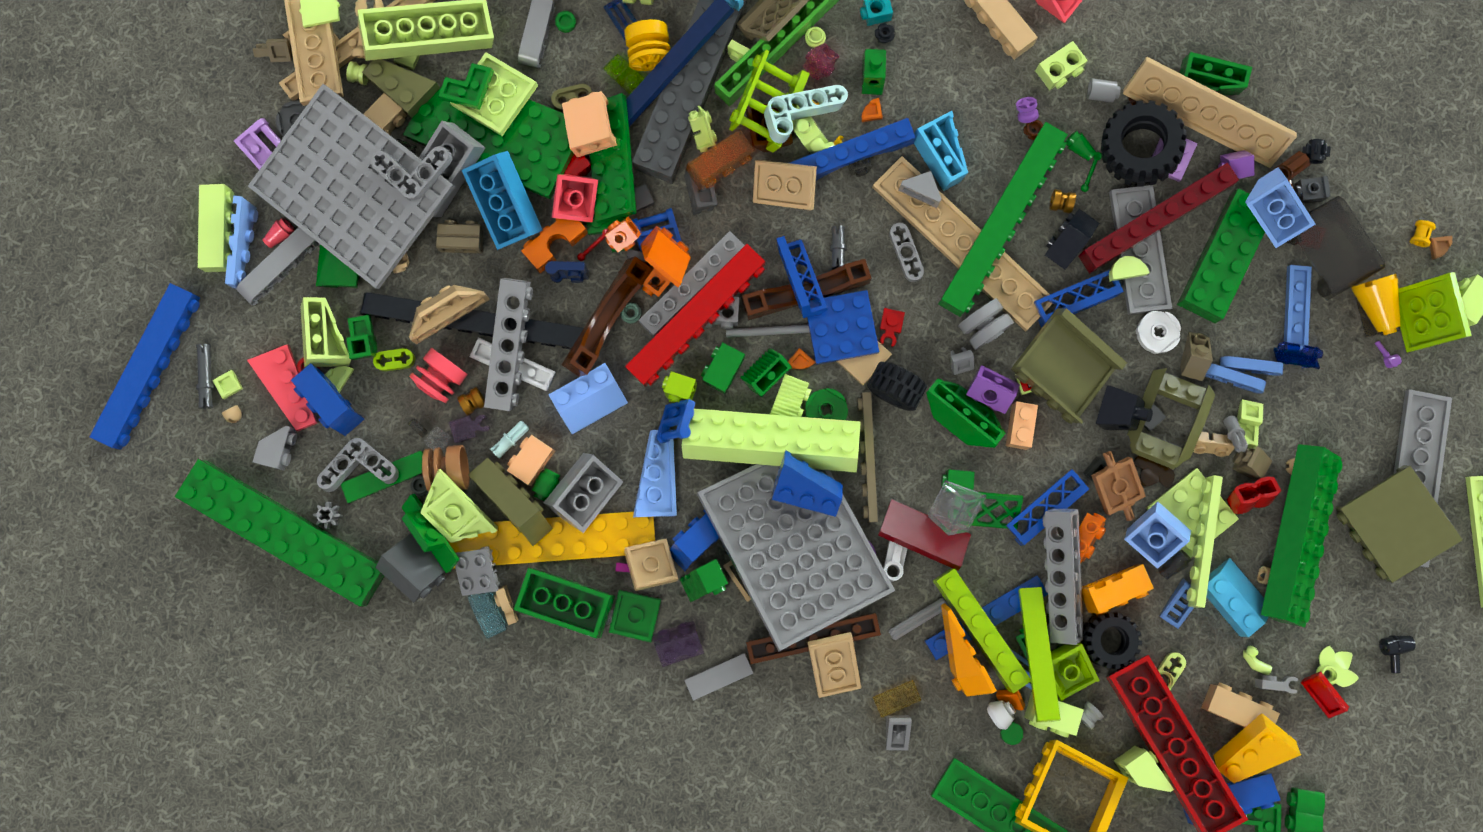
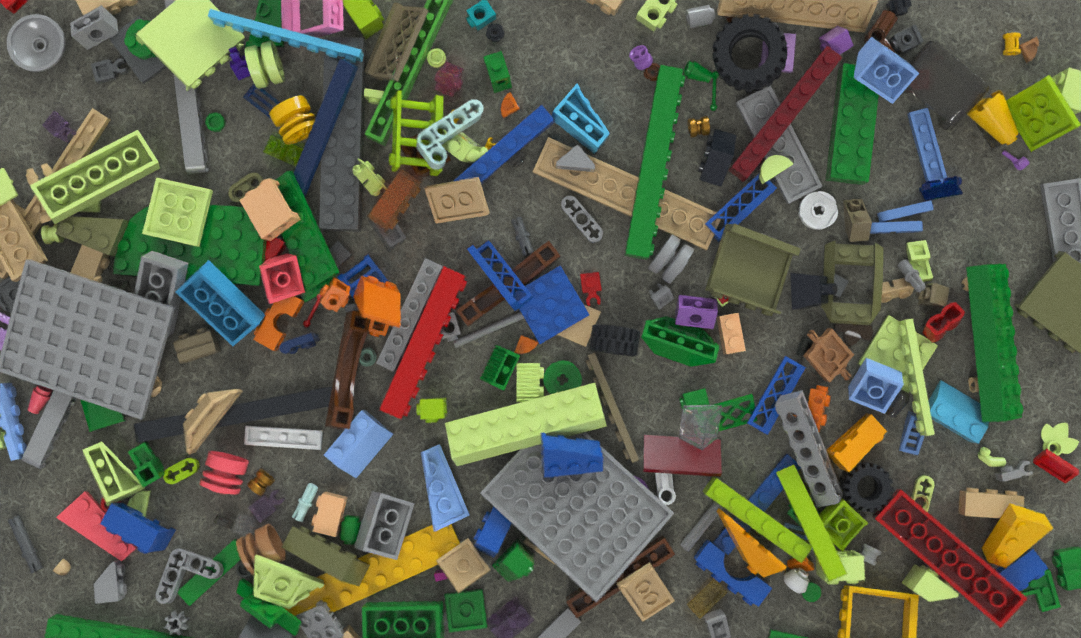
camera: 20 degrees left, 5 degrees up
(227, 384) = (48, 543): yellowish green tile -> none
(415, 178) = (138, 314): light grey beam -> none
(472, 91) = (157, 218): green plate -> none
(495, 397) = (279, 472): light grey brick -> none
(676, 414) = (439, 432): blue plate -> none
(722, 368) = (462, 376): green brick -> none
(949, 705) = (751, 587): none -> blue arch

